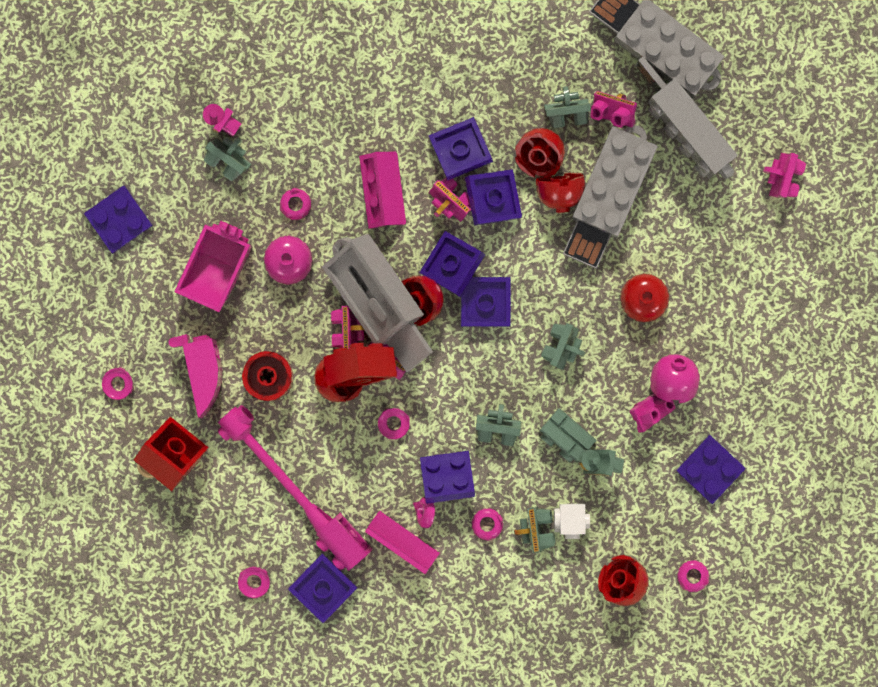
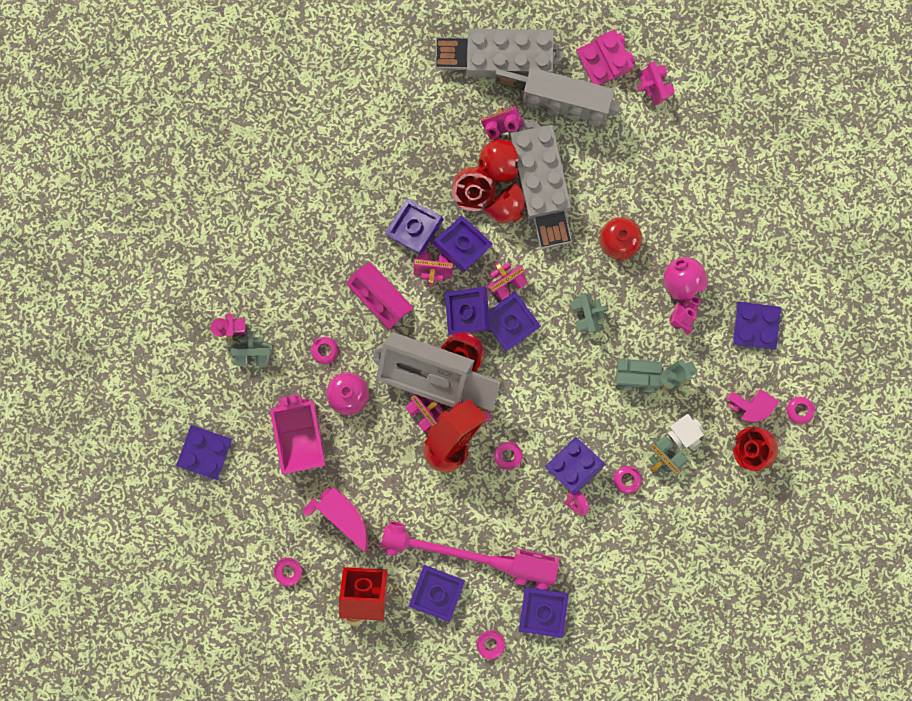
camera: 30 degrees left, 5 degrees down
(238, 501) = (436, 593): none -> dark purple plate
(254, 371) = (390, 474): red brick -> none
(402, 542) = (576, 536): dark pink panel -> none
(499, 423) = (582, 400): sand green hips -> none
(520, 261) = (515, 275): none -> dark pink hips
(578, 108) = (463, 152): sand green hips -> none
(583, 143) = (499, 160): none -> red cylinder
(650, 546) = (754, 411): none -> dark pink brick
(756, 117) = (606, 58): none -> dark pink plate

